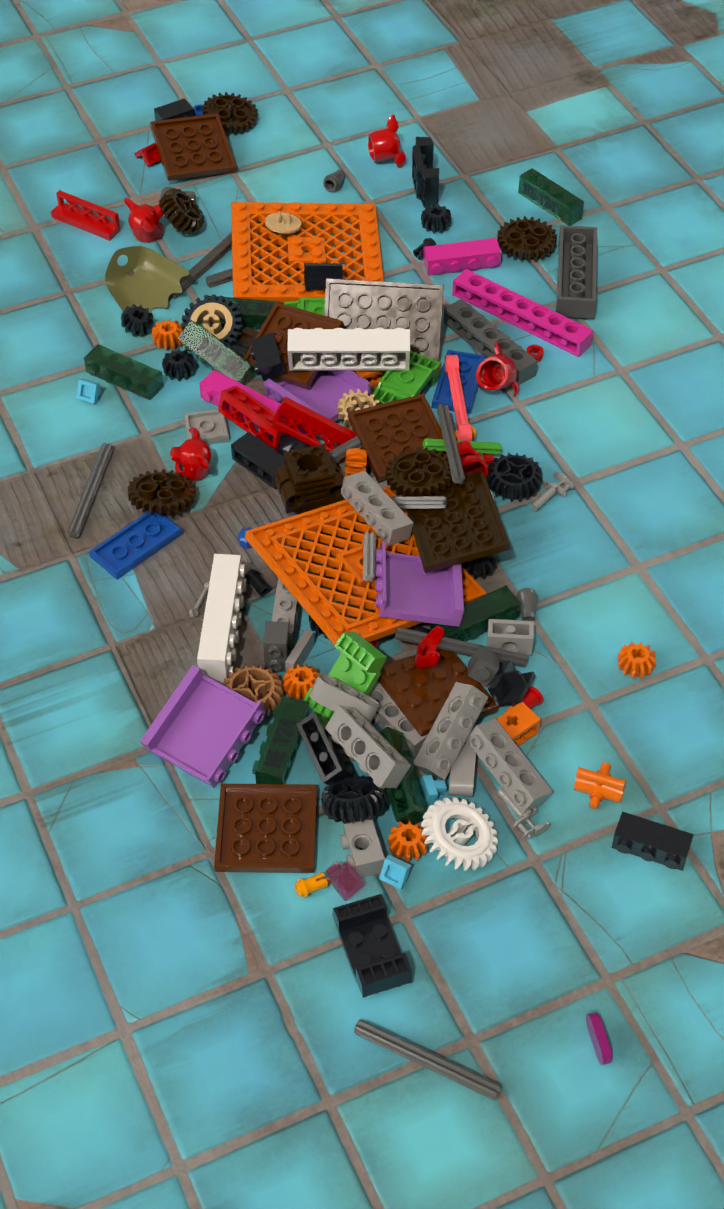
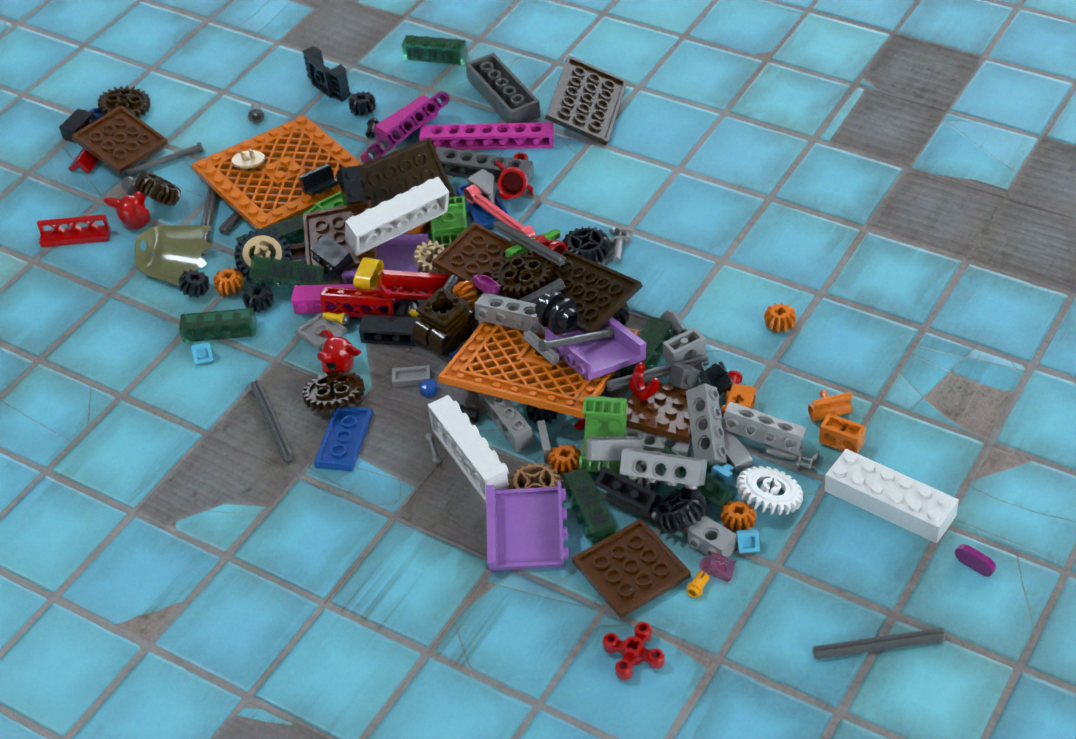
camera: 30 degrees left, 5 degrees down
(205, 930) = (633, 651): none -> red gear
(219, 186) = (165, 159): none -> dark grey bar
(230, 425) = (342, 318): none -> yellow piece
(243, 516) = (410, 375): none -> light grey tile
(276, 392) = (368, 273): none -> yellow beam
(276, 645) = (527, 443): dark grey brick -> none
(331, 296) = (351, 185): none -> black brick
(355, 557) = (544, 345): none -> dark grey bar
(371, 946) = (777, 598): black plate -> none
(375, 463) = (486, 284): none -> magenta tile
(386, 144) = (277, 67): red piece -> none
(404, 530) = (557, 312): none -> black piece
(457, 263) = (411, 124): none -> magenta beam
(469, 359) = (485, 182): none -> light grey slope
(527, 238) = (447, 80): dark brown gear -> none
(576, 916) = (891, 495): none -> white brick
(583, 820) = (842, 433): none -> orange brick
(647, 323) = (586, 100): none -> piece
(652, 841) = (895, 422): black brick -> none

